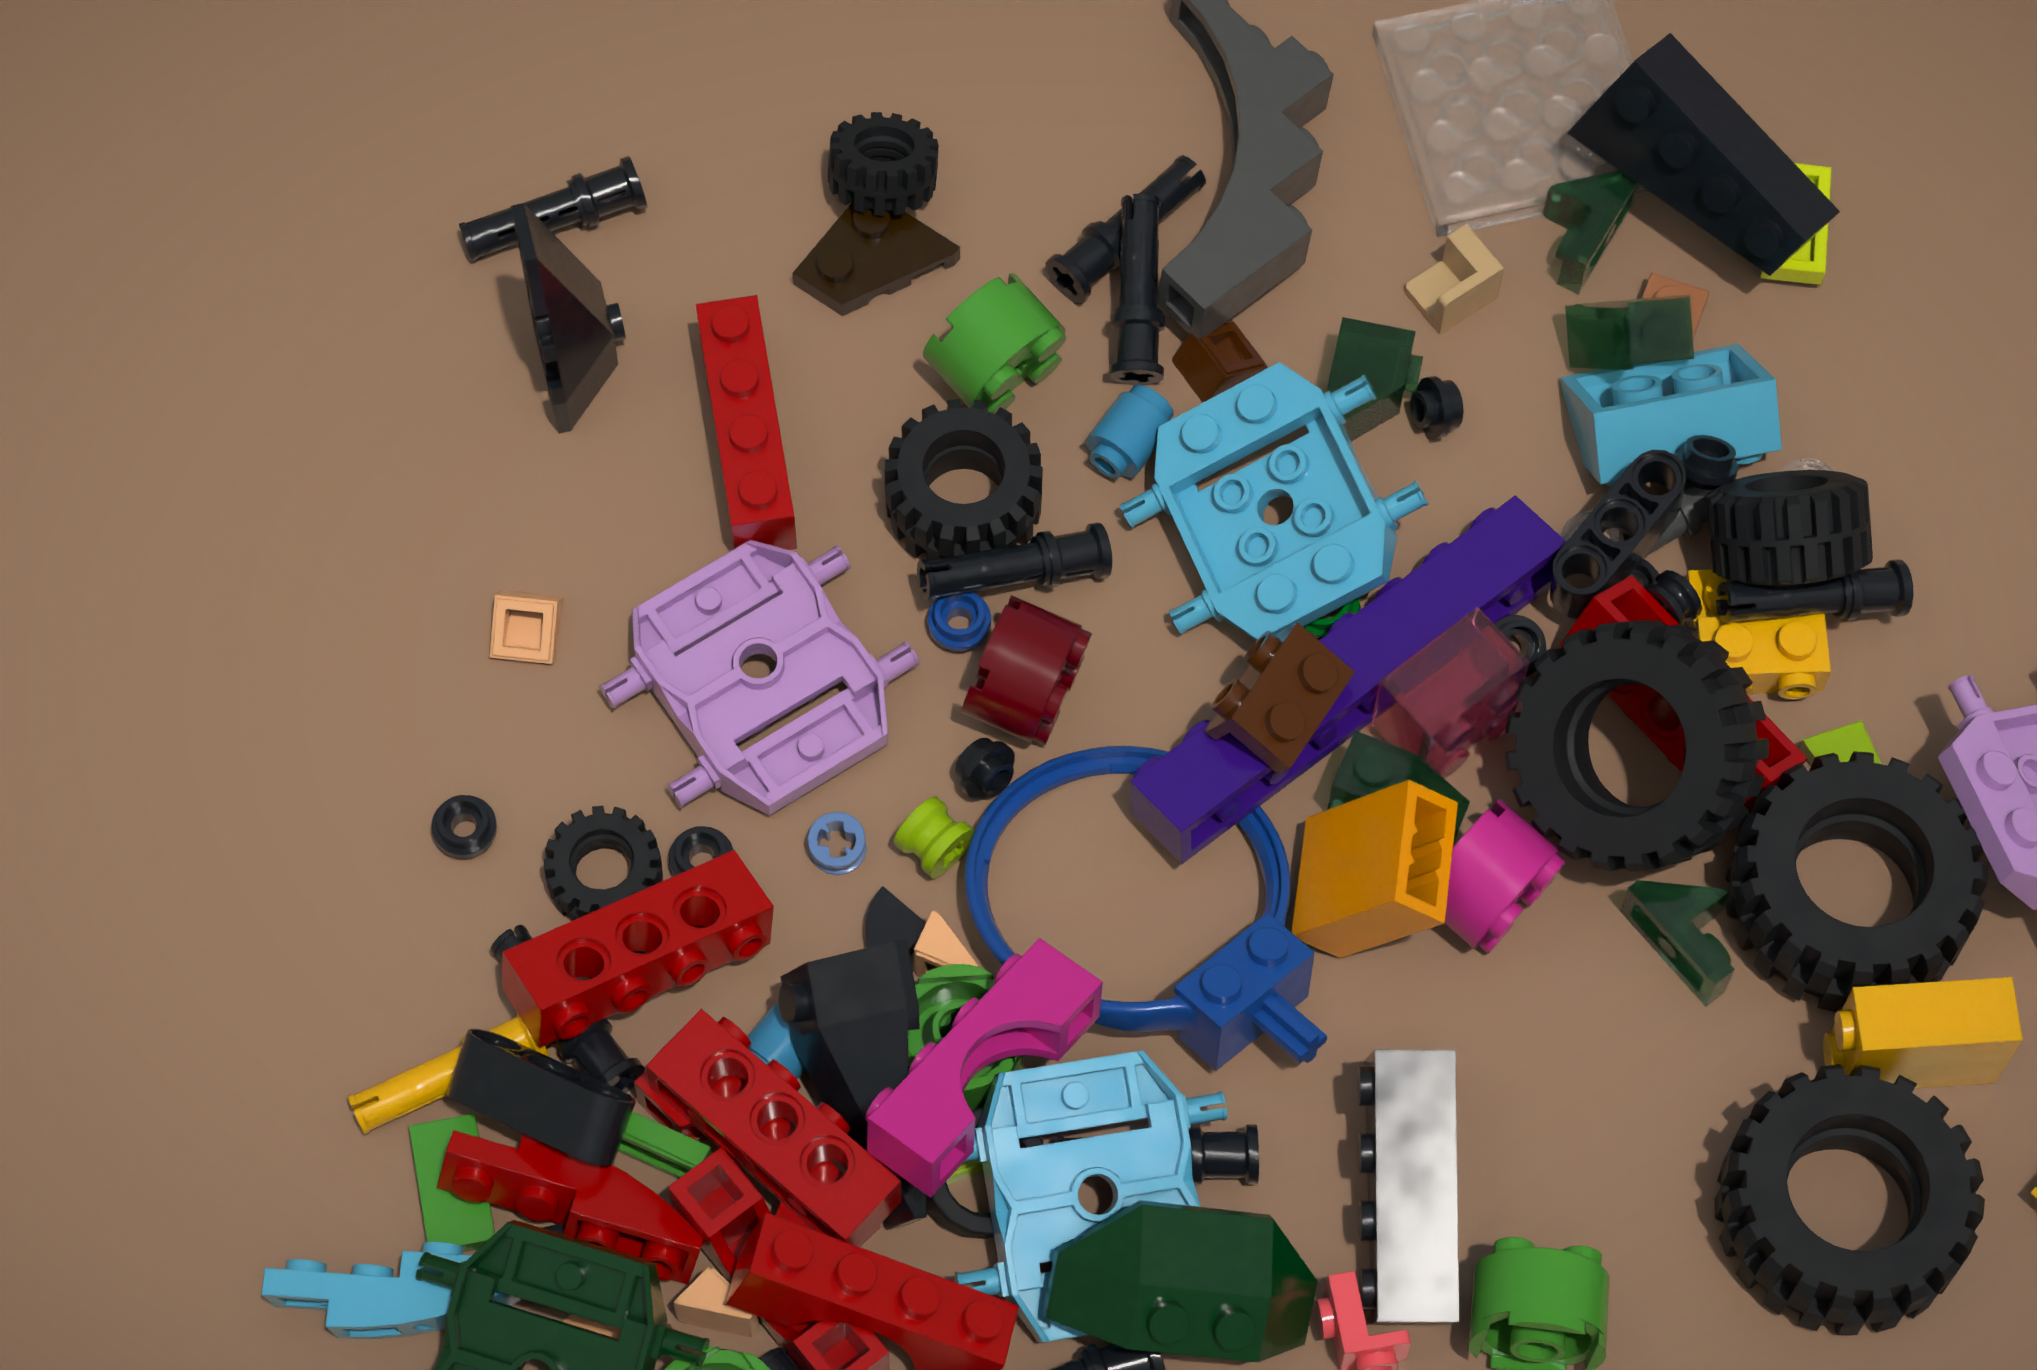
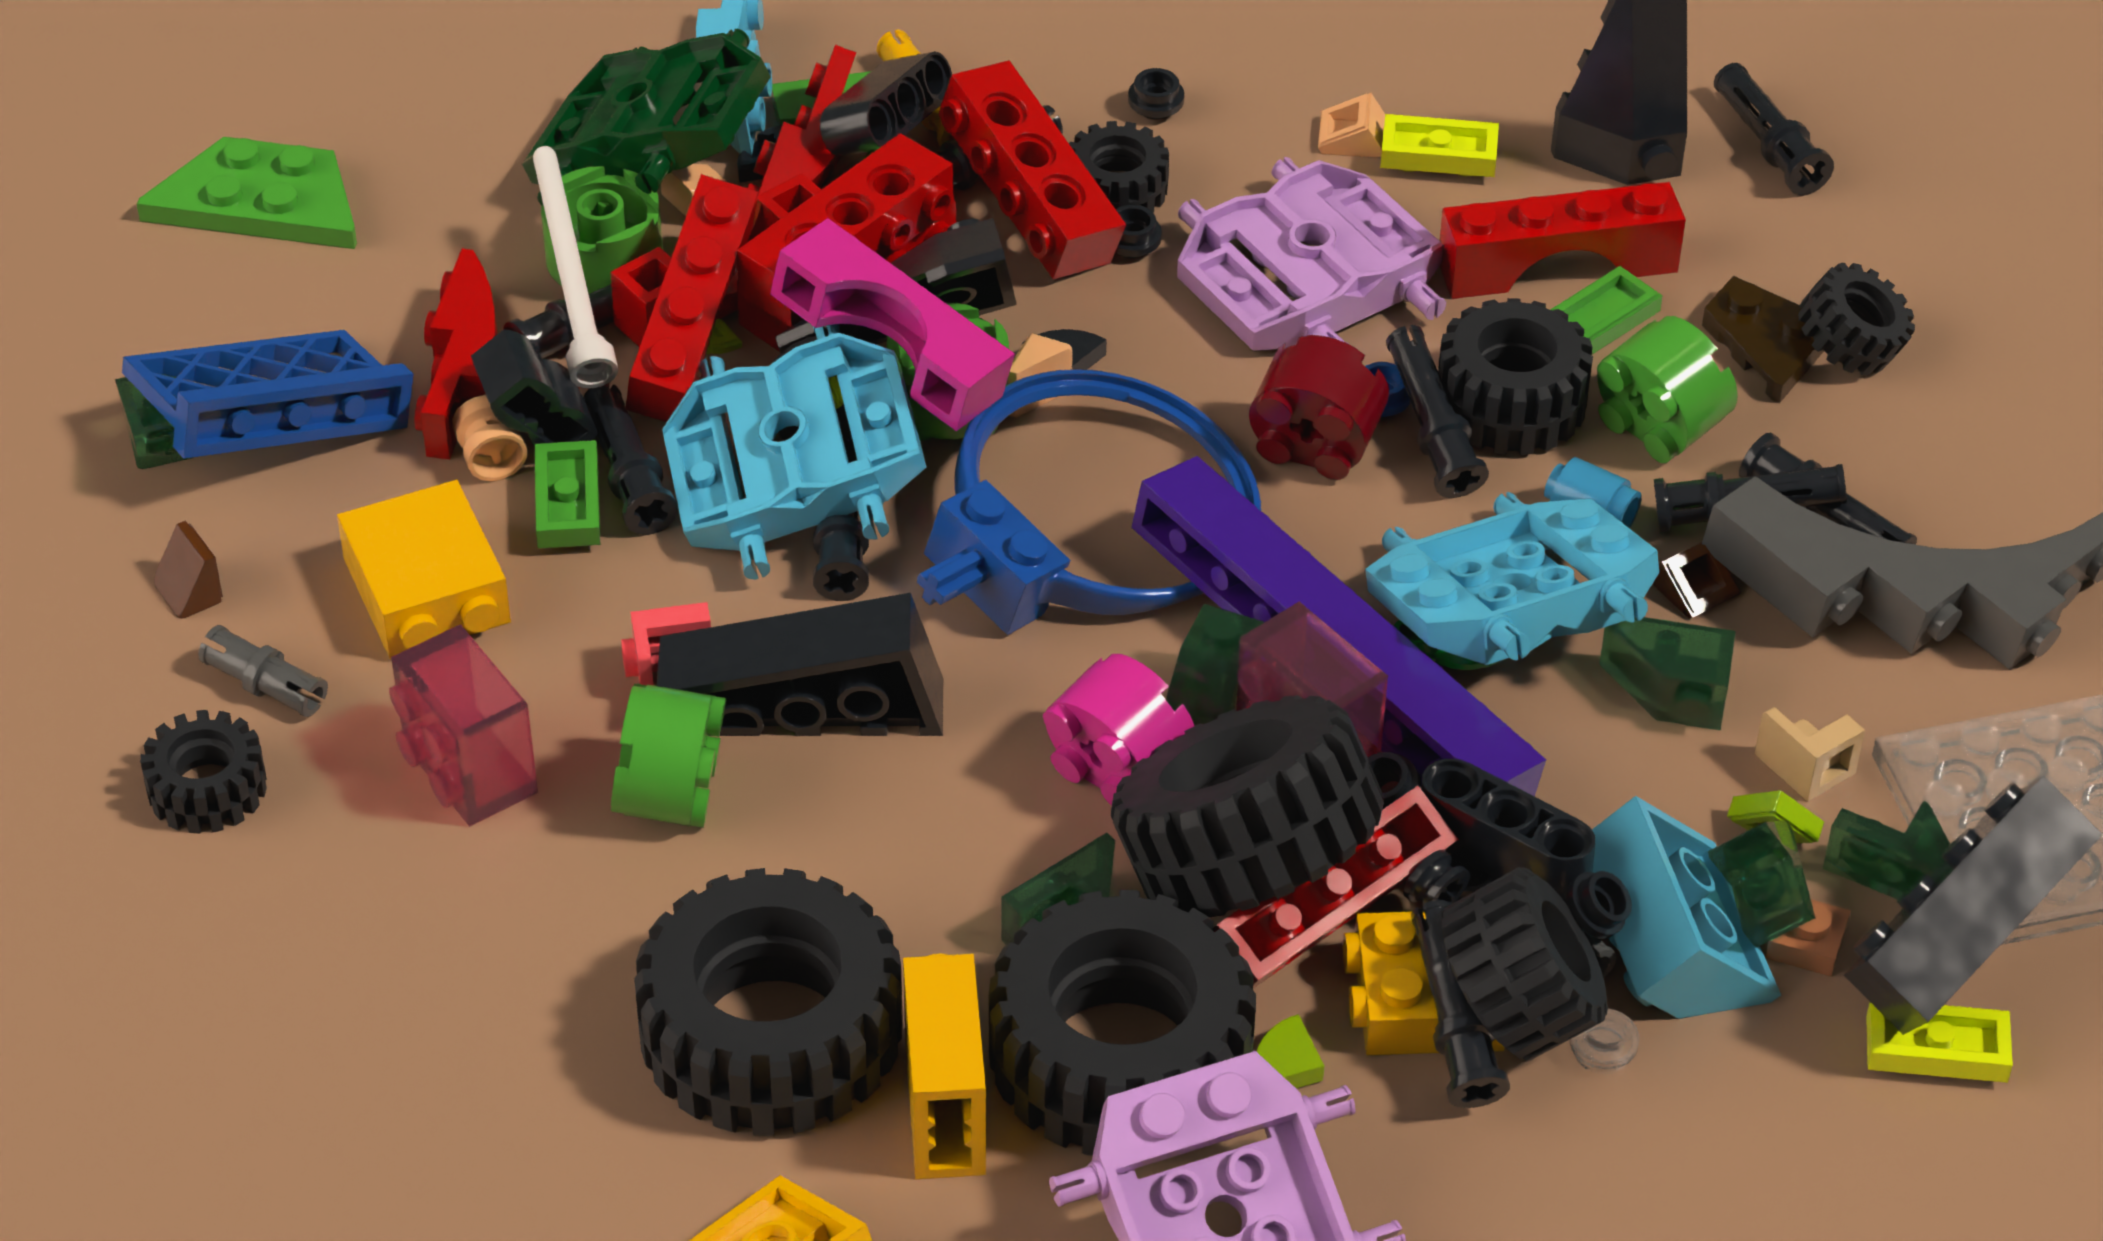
camera: 90 degrees right, 20 degrees down
(571, 536) = (1439, 145): none -> neon yellow plate
(835, 406) = (1611, 306): none -> bright green tile
(853, 833) = (1155, 331): medium blue bush -> none
(934, 837) = (1158, 361): lime wheel -> none
(985, 768) = (1226, 400): black plate -> none
(1184, 1283) = (691, 499): dark green wedge -> none
(1280, 696) = (1281, 542): reddish brown bracket -> none
(1375, 869) = (1103, 619): light orange brick -> none
(1437, 406) = (1656, 728): black plate -> none
(1539, 322) = (1775, 806): none -> lime tile

